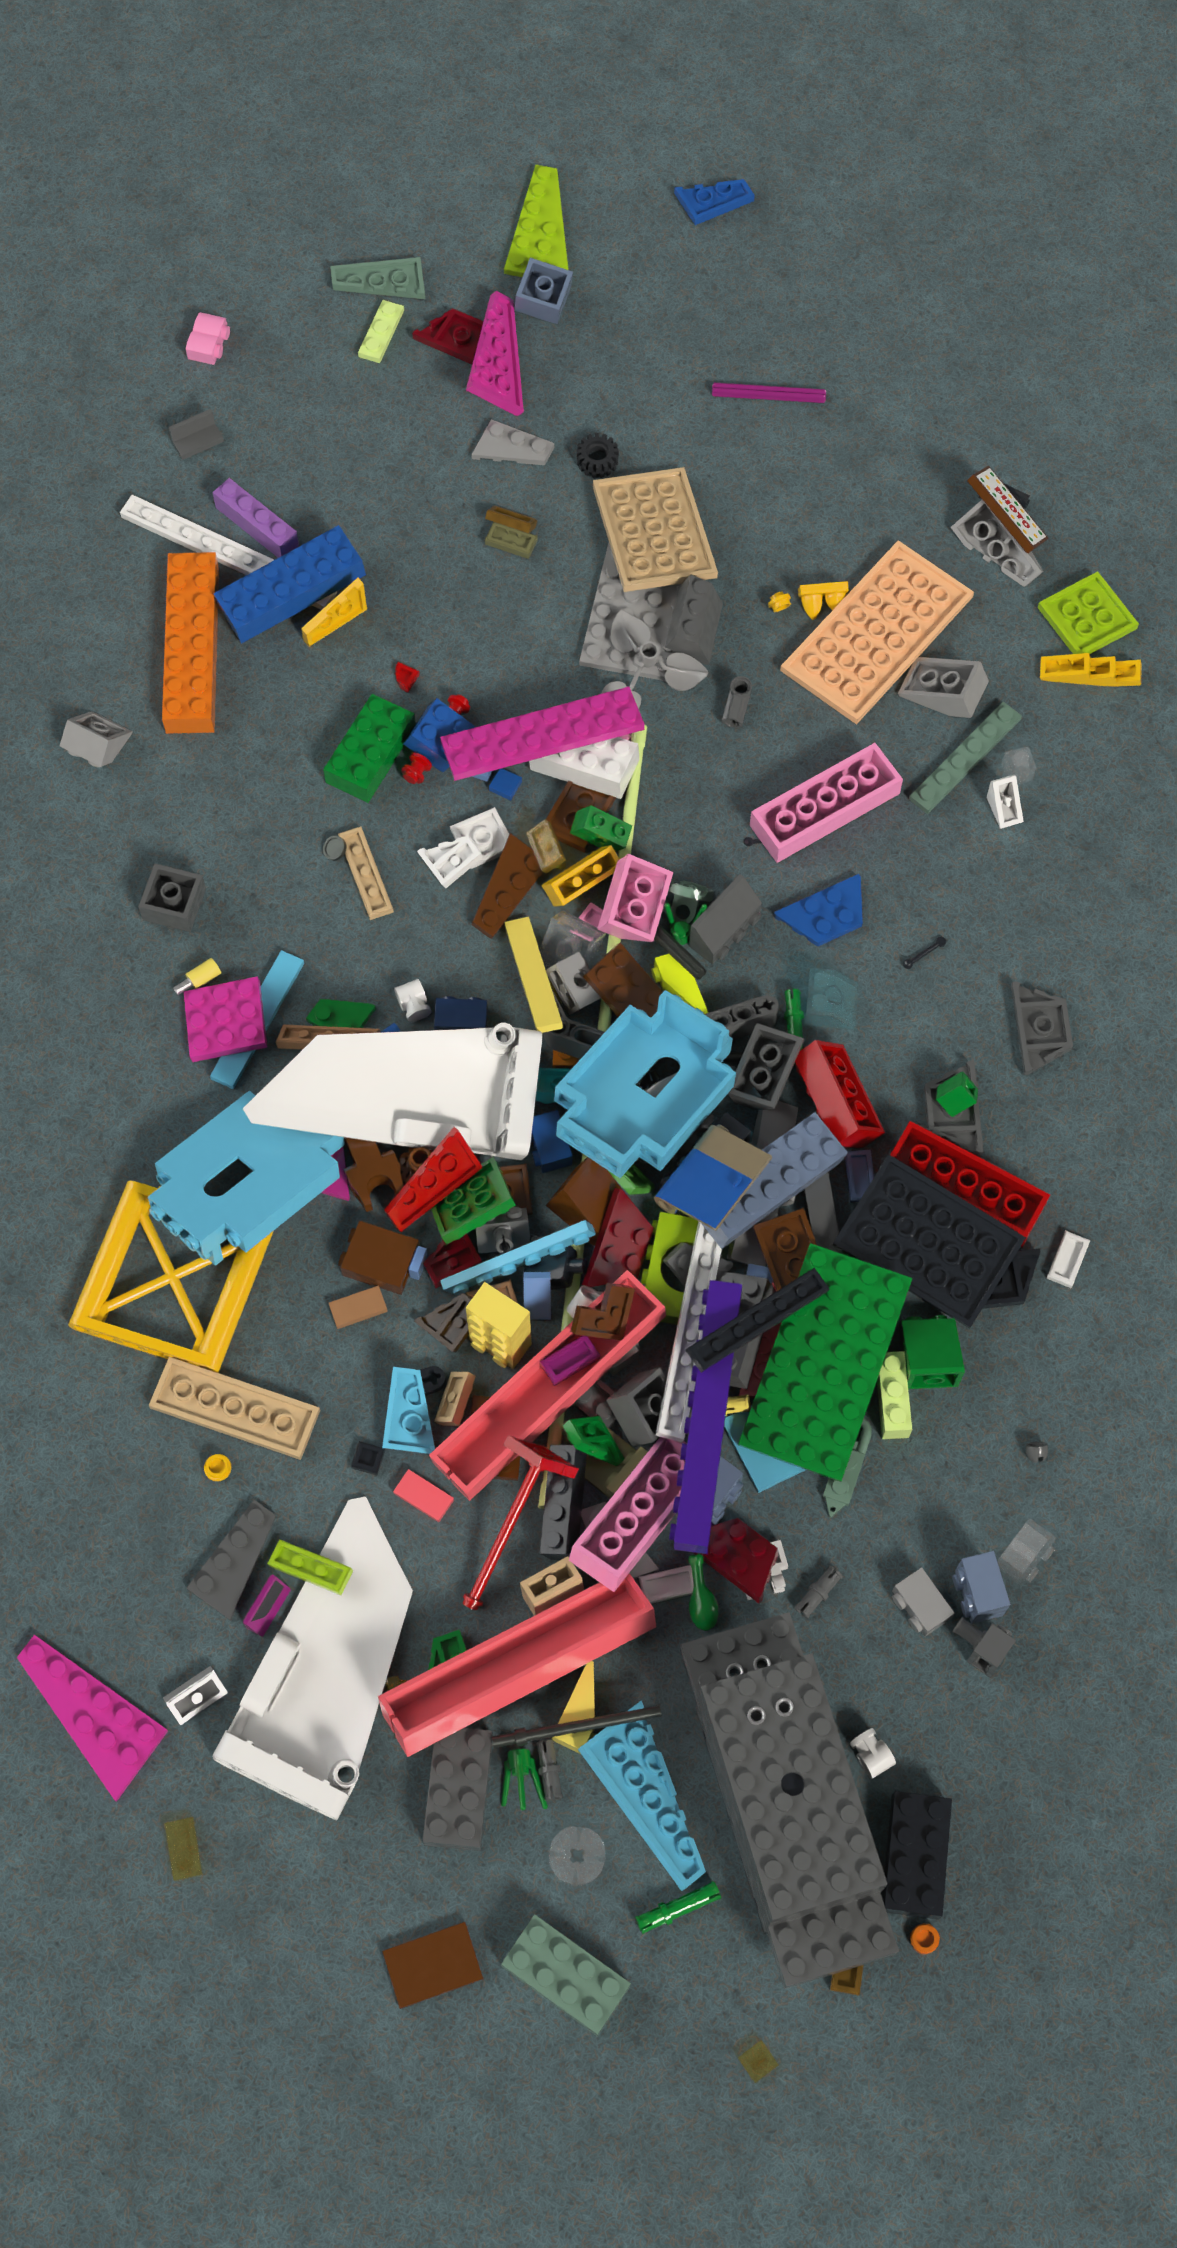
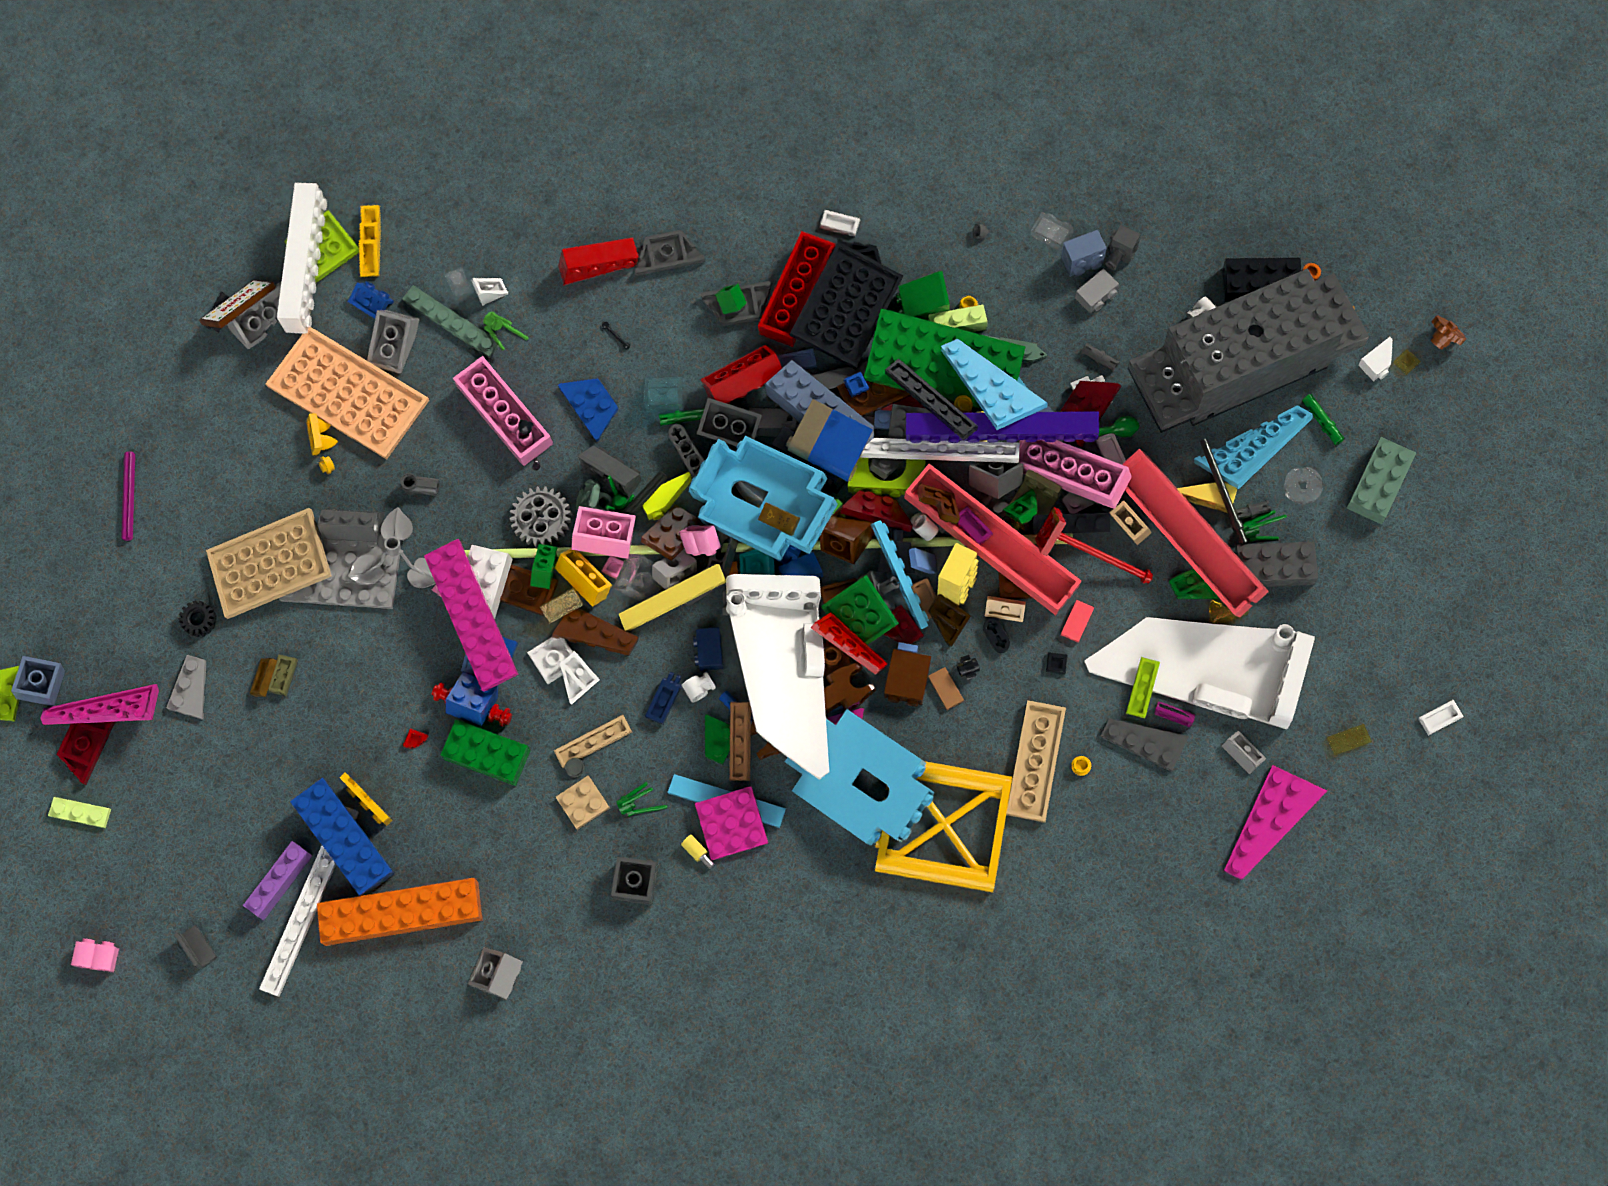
camera: 90 degrees left, 5 degrees up
(190, 1993) = (1440, 717): none -> white tile
(275, 904) = (627, 802): none -> green plant
(288, 853) = (582, 802): none -> tan plate
(379, 1336) = (968, 667): none -> black gear
(386, 278) = (24, 815): sand green wing -> none
(404, 958) = (664, 699): none -> dark blue hinge
(407, 1414) = (1023, 638): medium azure wing -> none
(432, 1965) = (1390, 566): reddish brown tile -> none
(602, 1009) = (700, 540): none -> bright pink brick
(609, 1101) = (779, 518): none -> pearl gold tile
(690, 824) = (553, 526): none -> light grey gear
(757, 1375) = (963, 403): none -> yellow plate
(758, 1410) = (995, 391): none -> medium azure wing
(762, 2013) = (1378, 361): none -> white slope
(792, 817) = (525, 427): none -> black hinge
(795, 2133) = (1446, 333): none -> dark orange plant
(801, 1233) = (856, 384): none -> blue tile
(922, 1417) = (968, 301): none -> yellow plate
(955, 806) = (495, 322): none -> bright green plant
(1007, 664) = (369, 299): none -> blue bracket
(1035, 935) = (596, 259): none -> red wedge
(1064, 580) = (301, 258): none -> white brick

